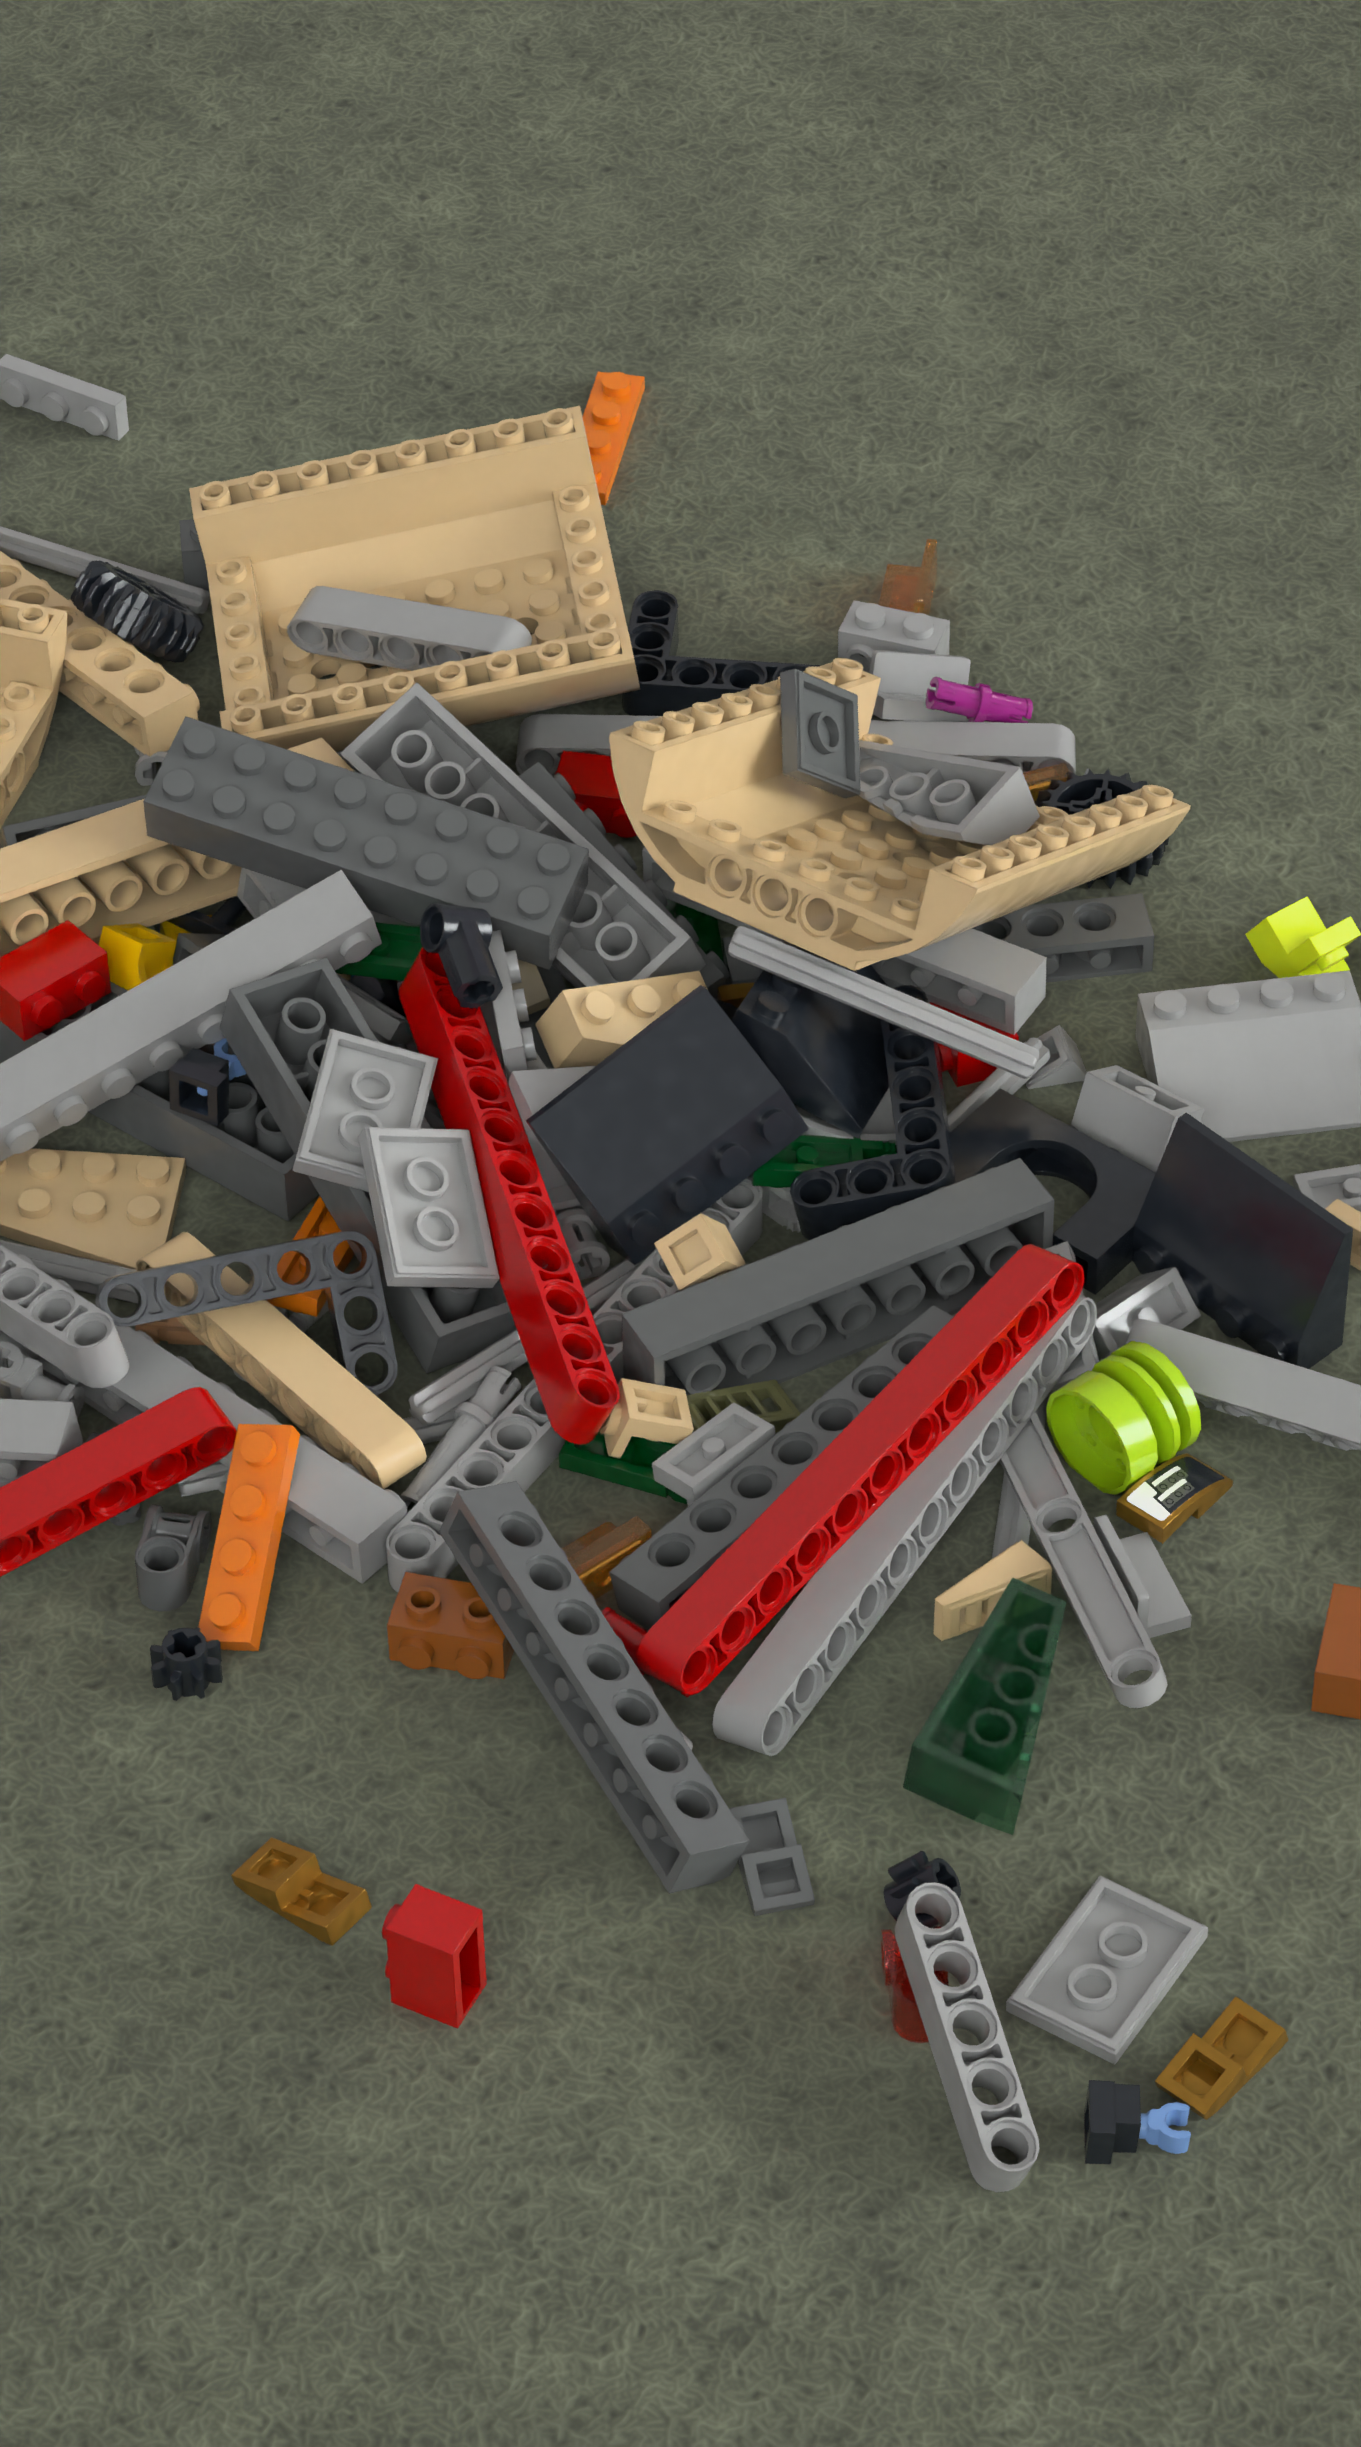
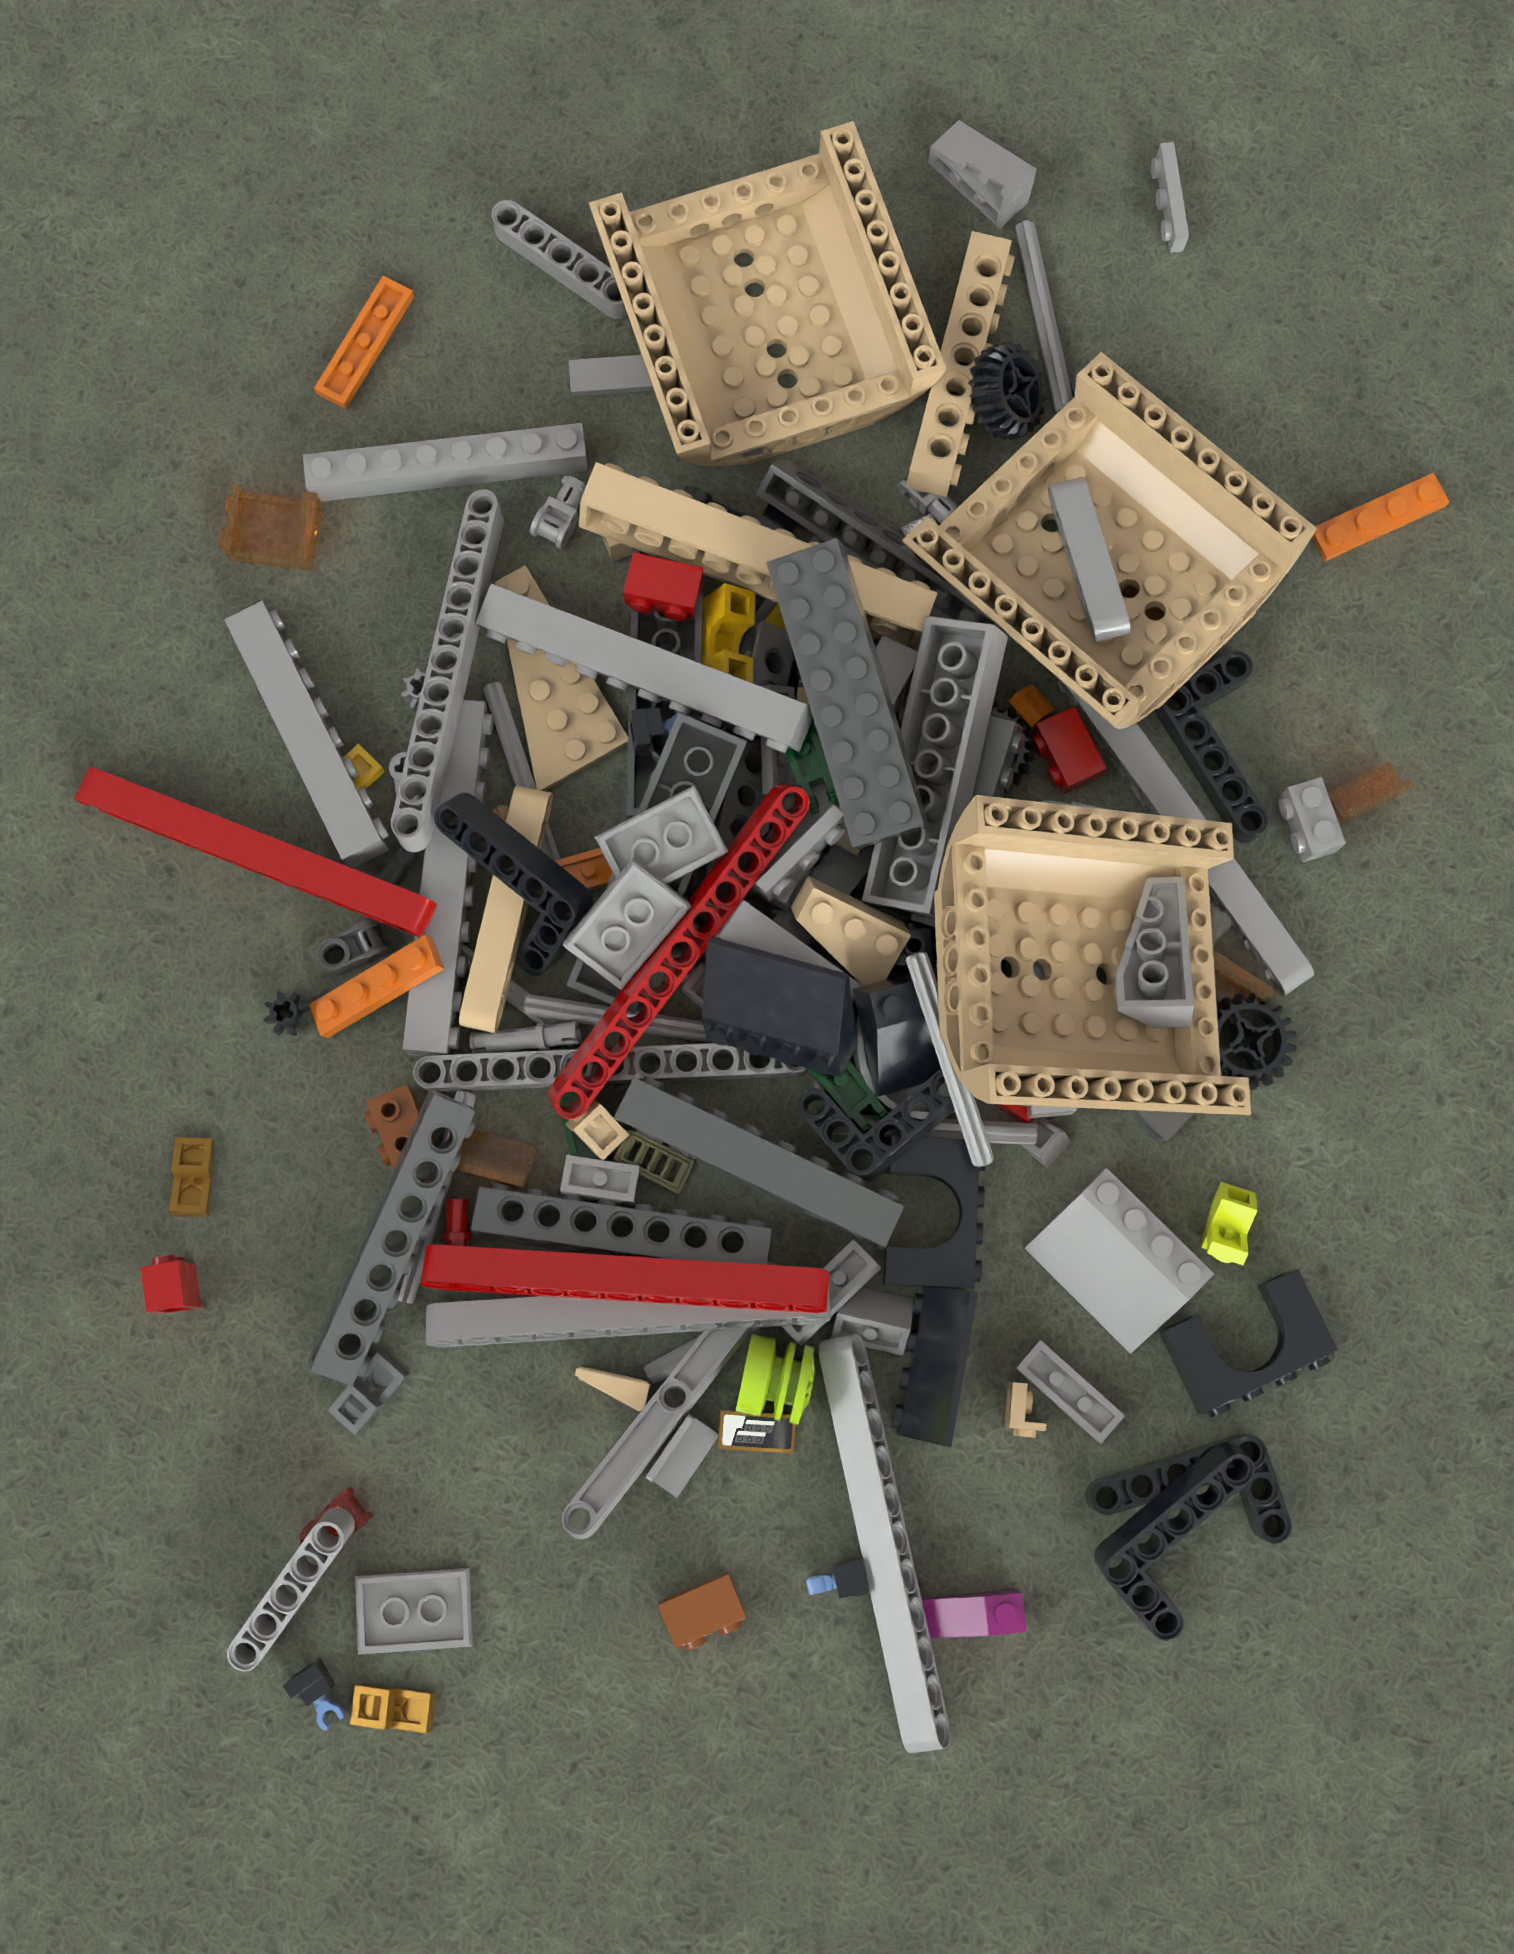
camera: 50 degrees right, 35 degrees up
(462, 941) = (806, 805): black piece -> none
(699, 1251) = (713, 1084): tan brick -> none
(820, 734) = (1137, 871): dark grey tile -> none
(906, 681) = (1279, 866): light grey panel -> none
(915, 1872) = (388, 1490): black gear -> none
(977, 702) = (1289, 908): magenta pin -> none
(990, 1713) = (527, 1447): clear green wedge -> none
(1130, 1114) = (1014, 1228): light grey brick -> none

